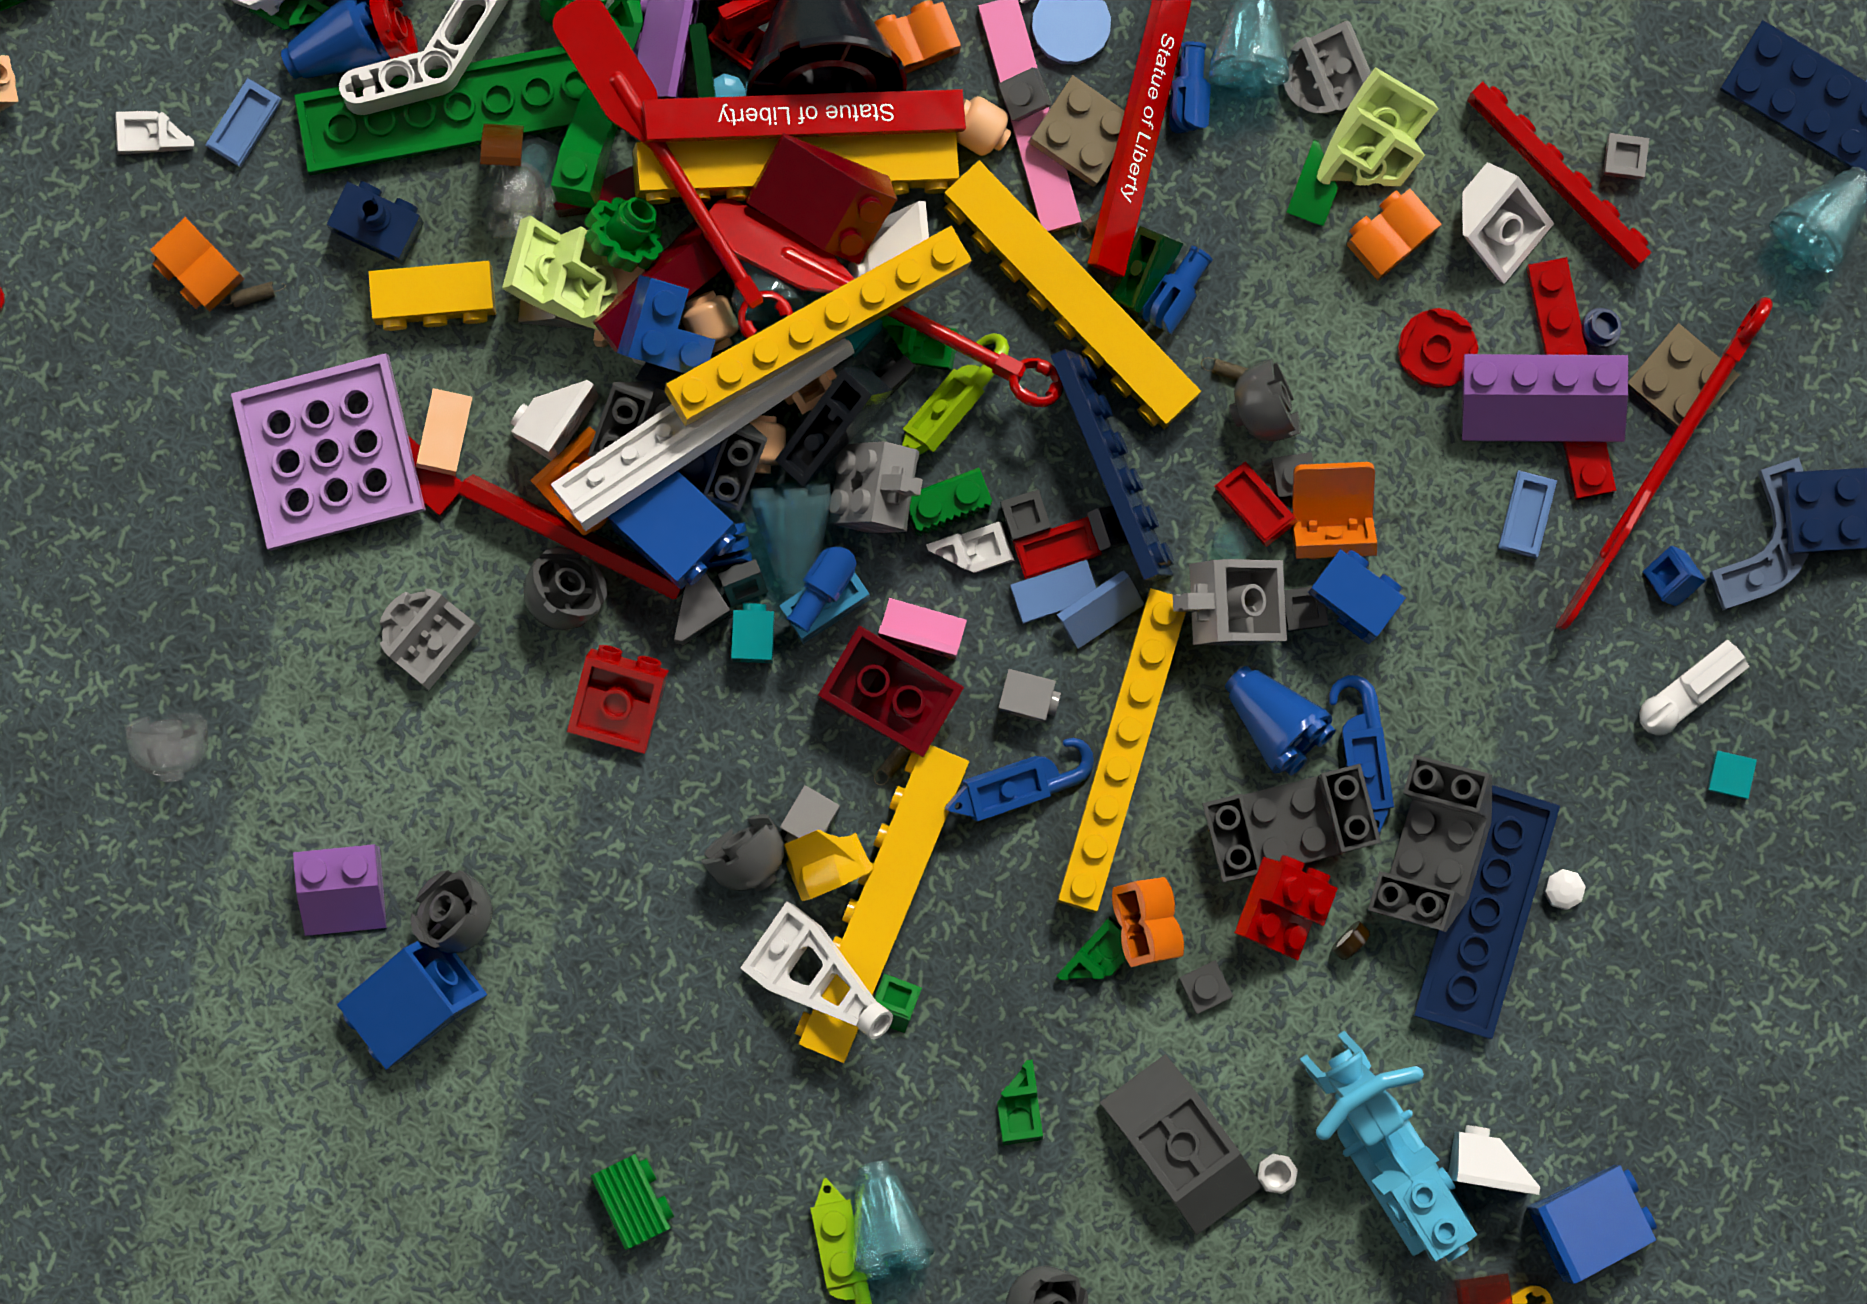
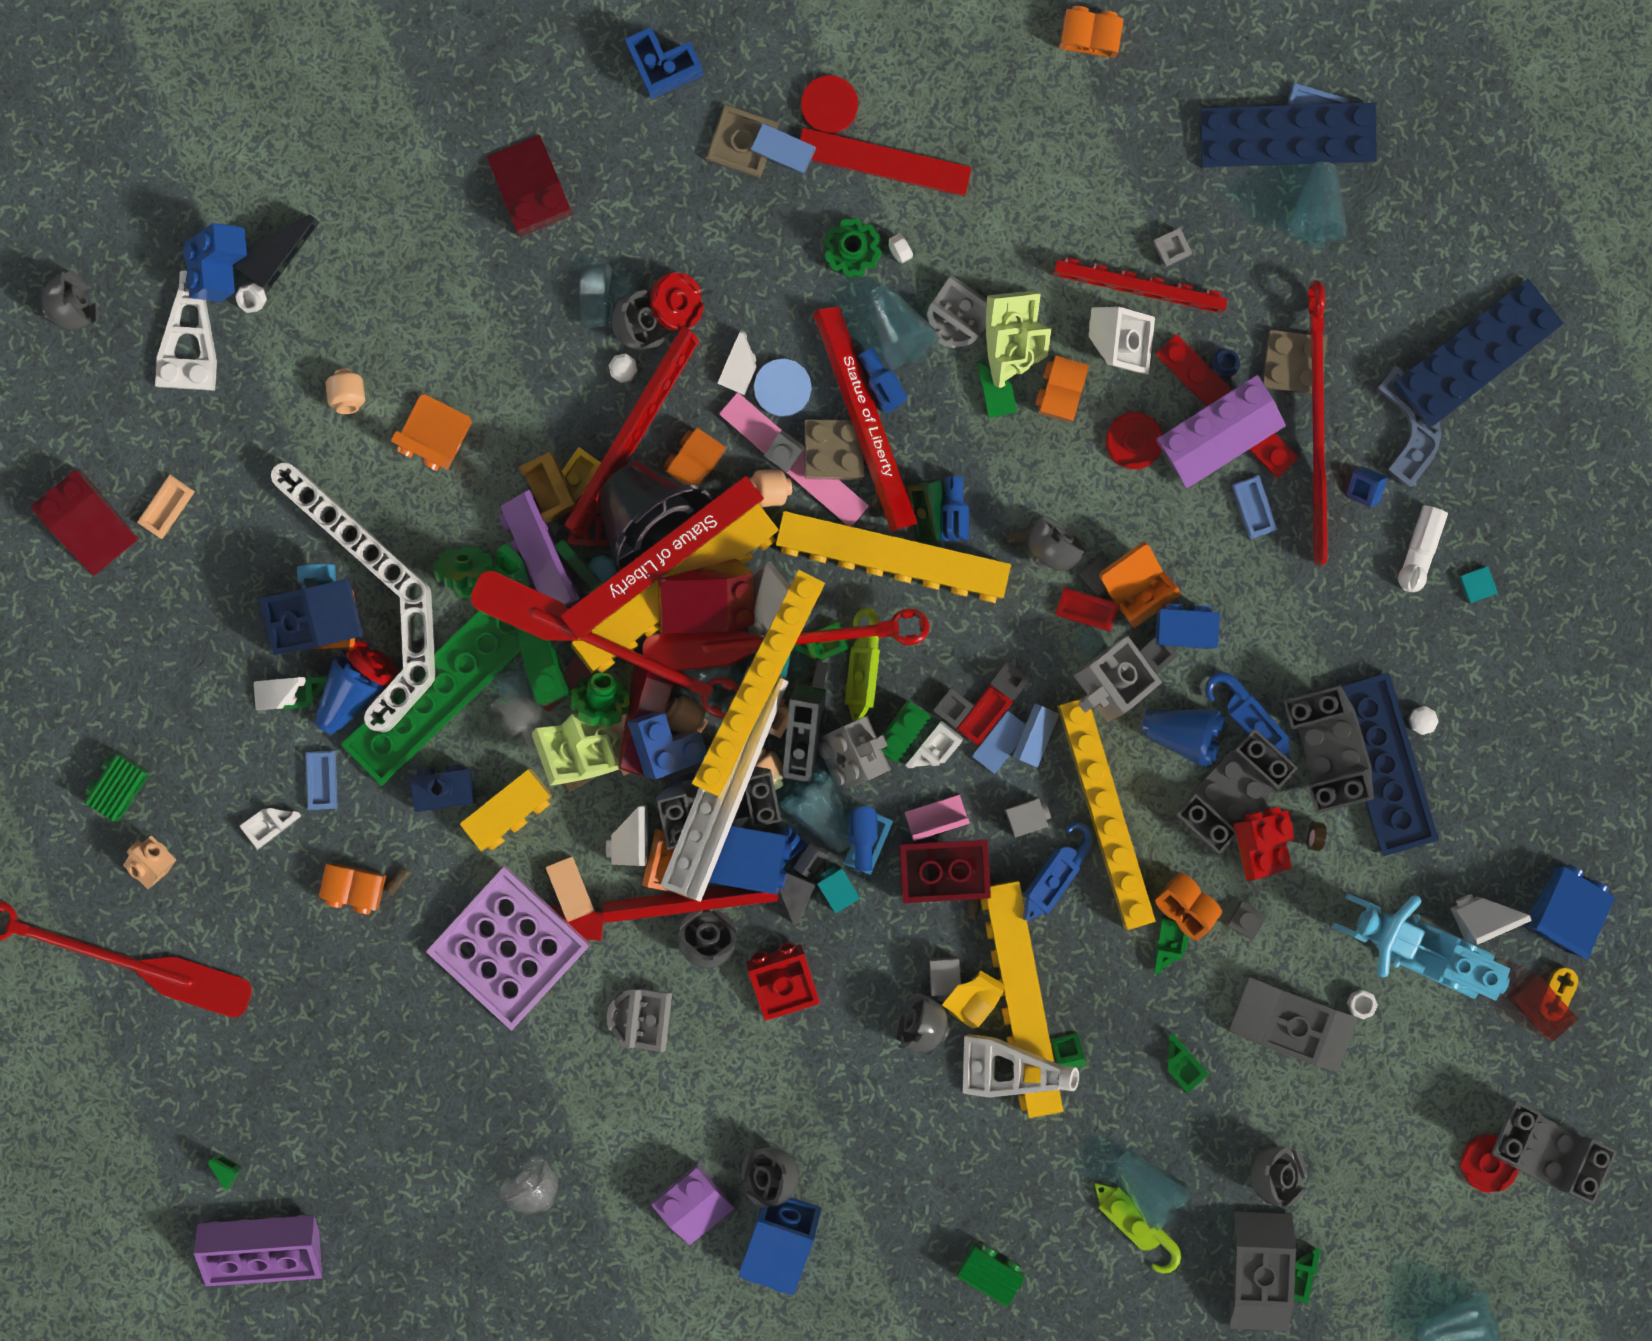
camera: 30 degrees left, 5 degrees up
(502, 145) = (489, 695): reddish brown slope -> none
(1108, 452) = (995, 650): dark blue plate -> none

